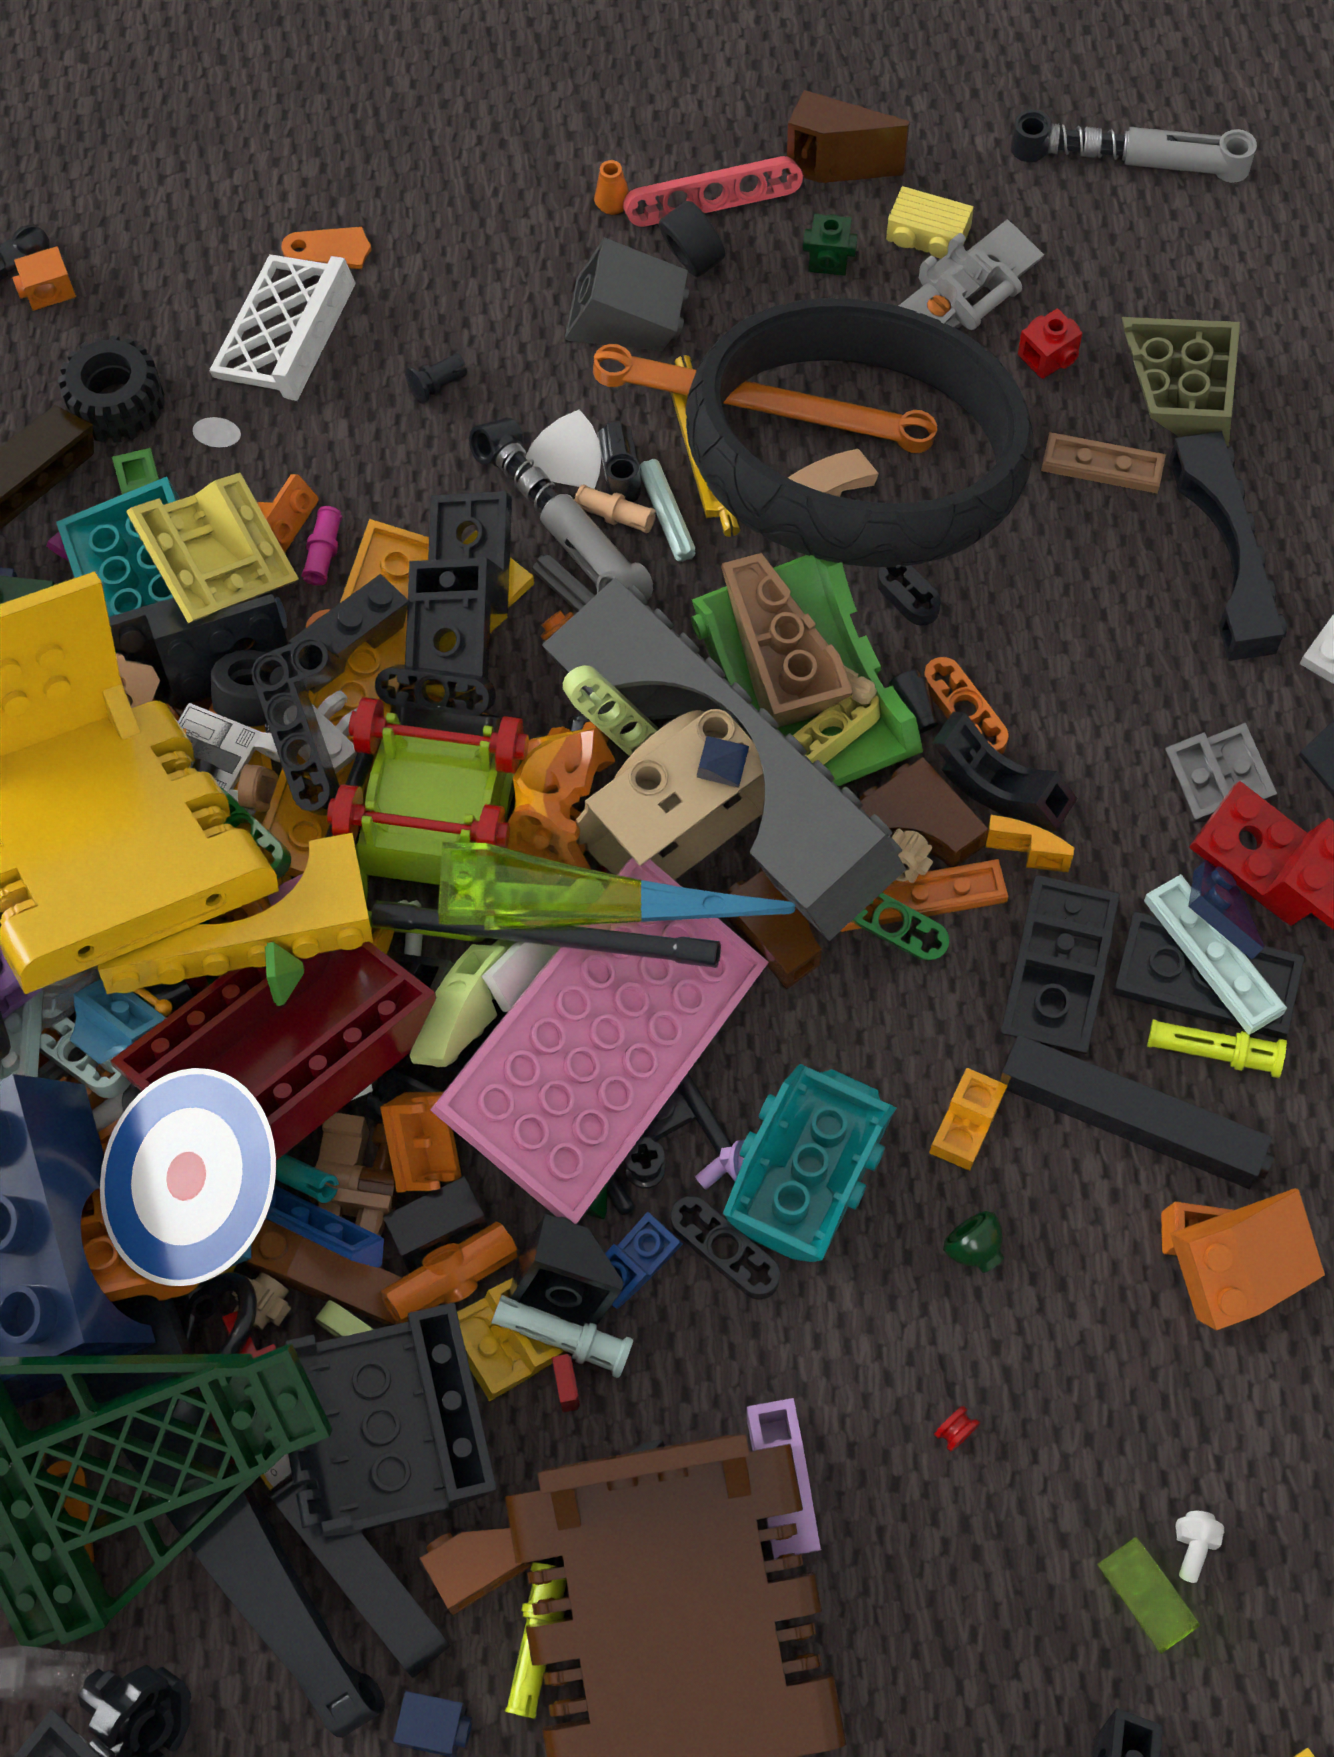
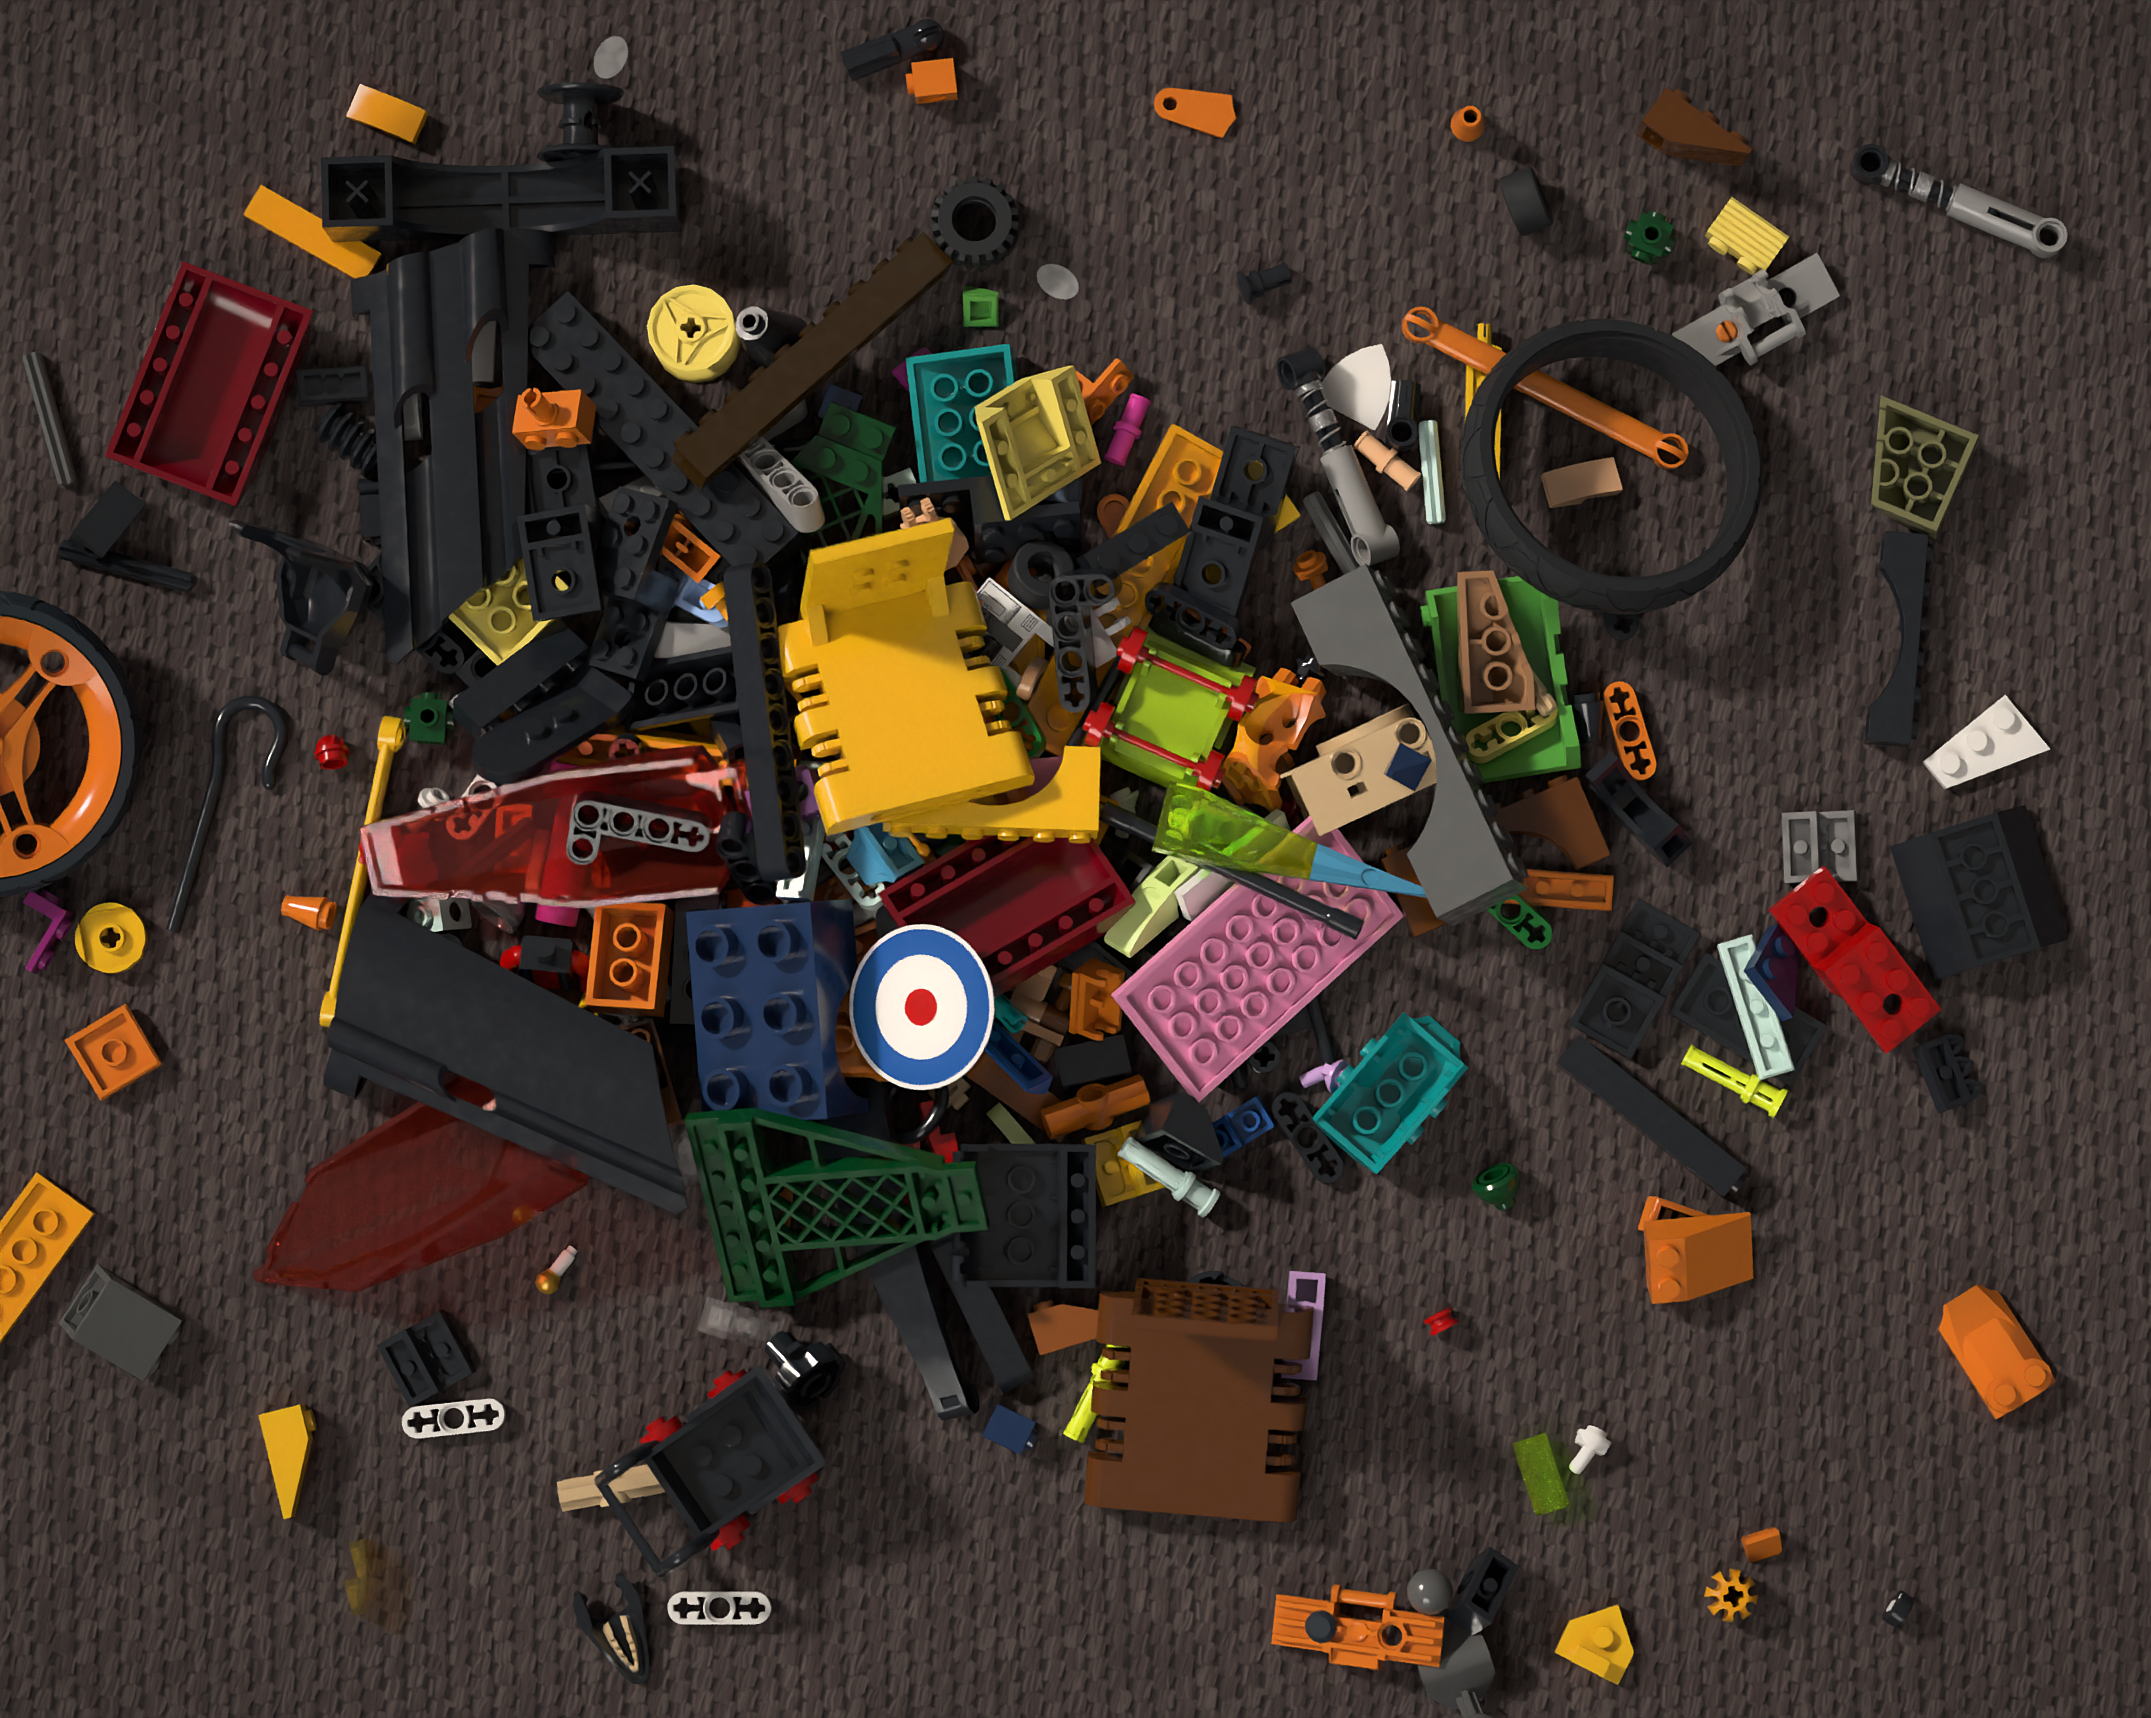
camera: 15 degrees right, 20 degrees up
(282, 972) = (1023, 854): bright green slope -> none
(309, 328) = (1166, 195): white fence -> none
(566, 1383) = (1162, 1213): red tile -> none
(615, 719) = (1335, 685): yellowish green beam -> none
(627, 299) = (1450, 250): dark grey slope -> none
(731, 193) = (1617, 149): coral beam -> none
(913, 854) = (1538, 858): tan gear -> none
(968, 1119) = (1522, 1085): light orange slope -> none
(1042, 847) = (1649, 878): light orange slope -> none
(1050, 343) = (1804, 407): red brick -> none
(1103, 462) = (1822, 525): medium nougat tile -> none

